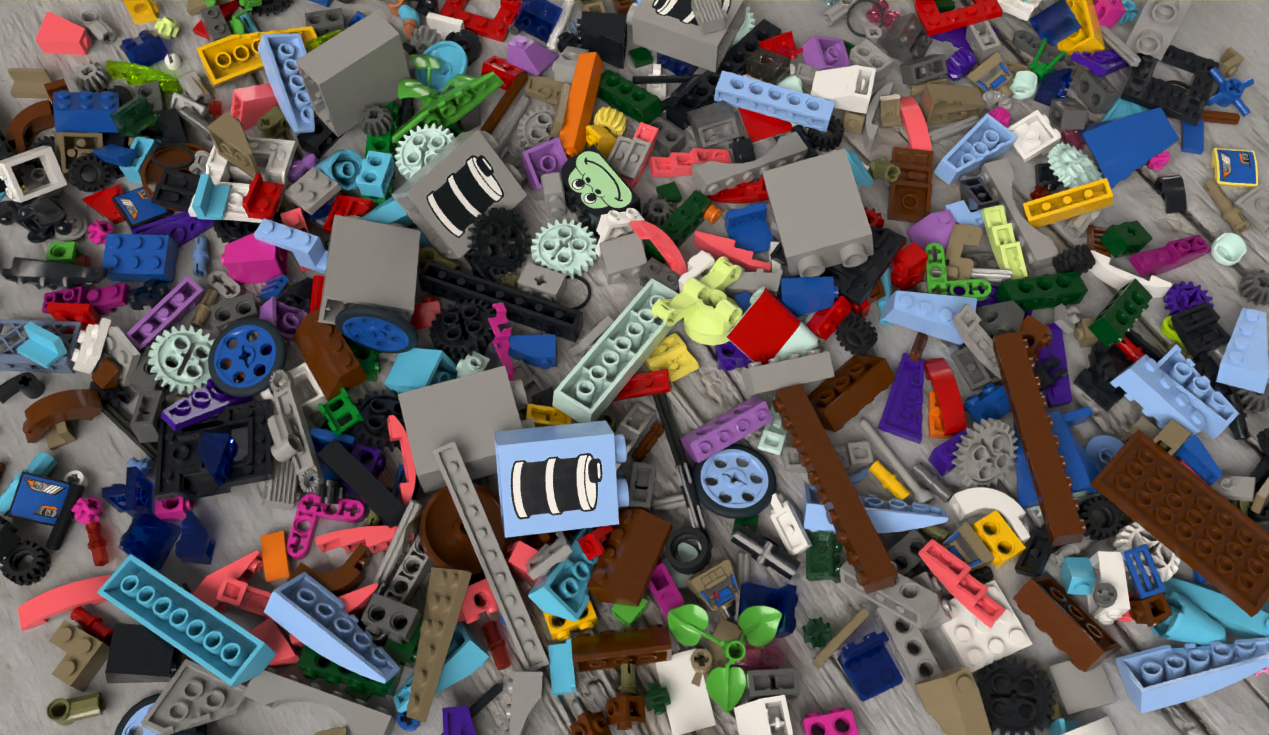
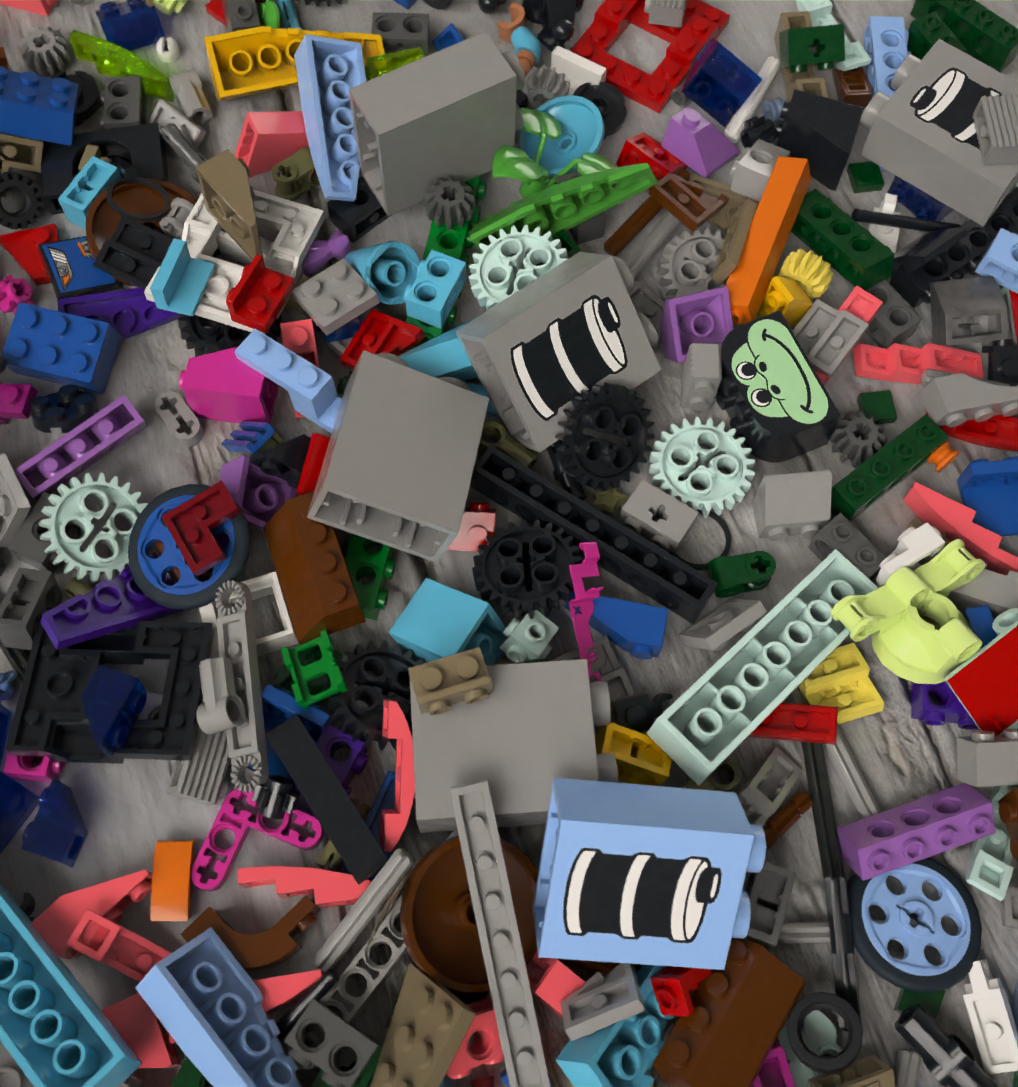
camera: 10 degrees right, 5 degrees up
(116, 155) = (56, 180): blue slope -> none
(134, 117) = (94, 127): clear green bracket -> none
(200, 256) = (151, 363): medium blue pin -> none
(203, 309) = (141, 448): dark tan axle -> none
(215, 108) = (215, 134): clear red plate -> none
(235, 310) = (186, 460): dark grey brick -> none
(248, 338) = (193, 525): none -> dark red plate
(376, 329) = (394, 550): wedge -> none
(406, 110) = (496, 196): black pin -> none
(423, 393) = (451, 681): none -> dark tan bracket
(527, 91) = (686, 200): none -> reddish brown wing
(598, 307) = (736, 575): none -> dark green piece
(616, 225) = (797, 452): white plate -> none
(662, 242) = (866, 500): coral slope -> none

